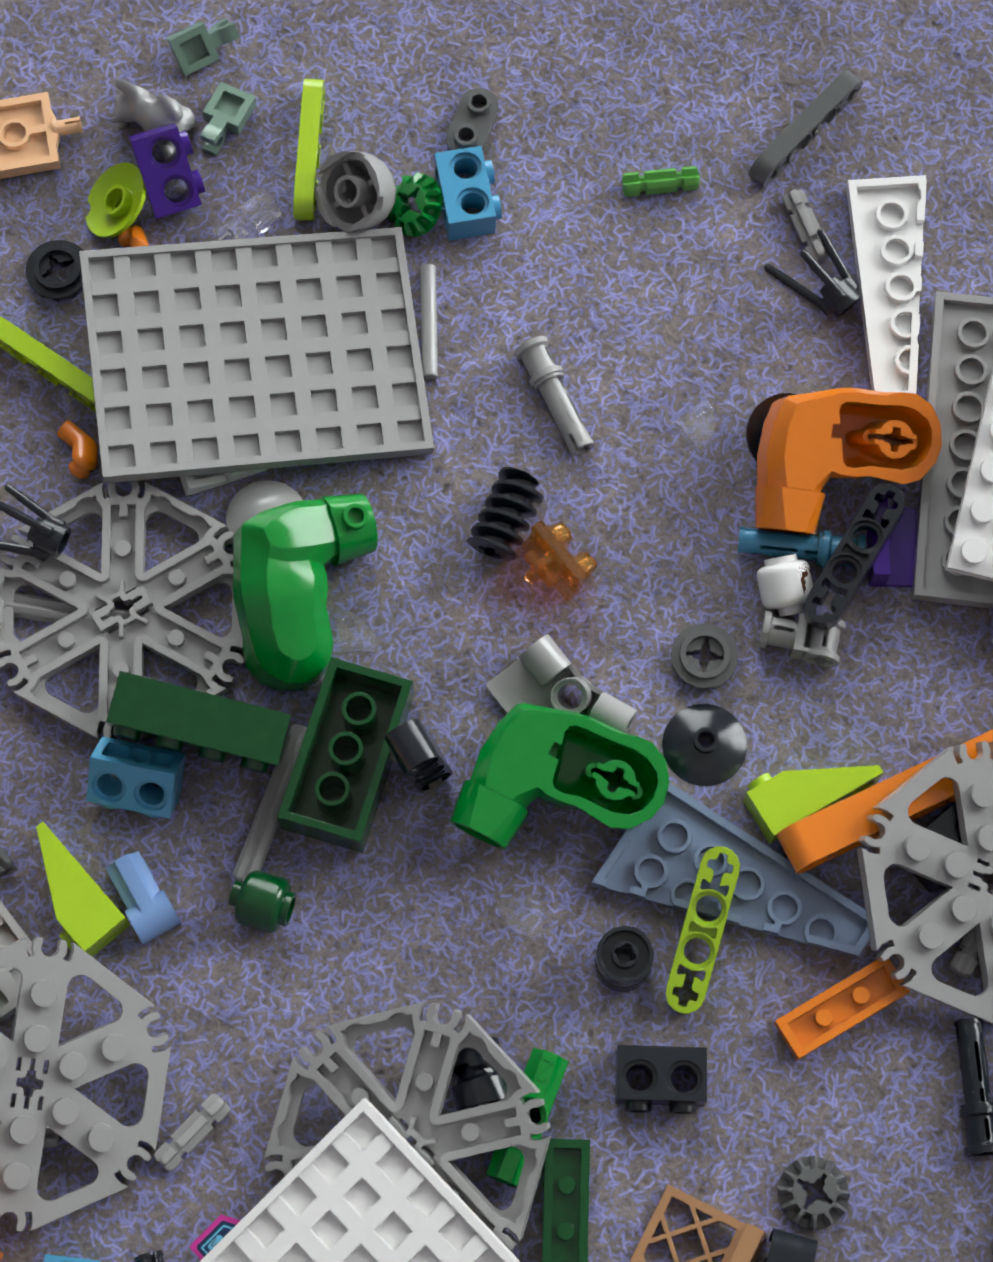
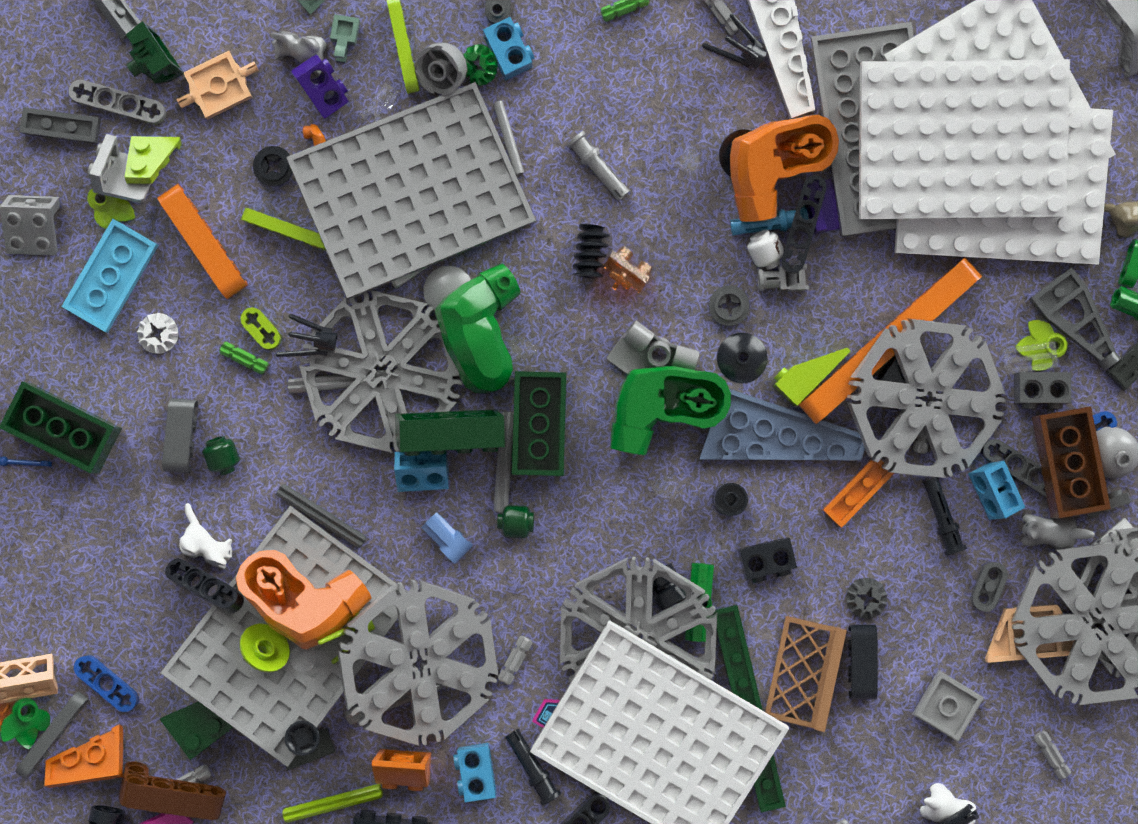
camera: 15 degrees left, 15 degrees up
(78, 901) = (412, 551): lime slope -> none
(83, 449) = (326, 278): orange arm -> none
(116, 200) = (294, 112): lime dish -> none
(418, 754) = (582, 416): black beam -> none
(696, 927) = (770, 470): lime beam -> none

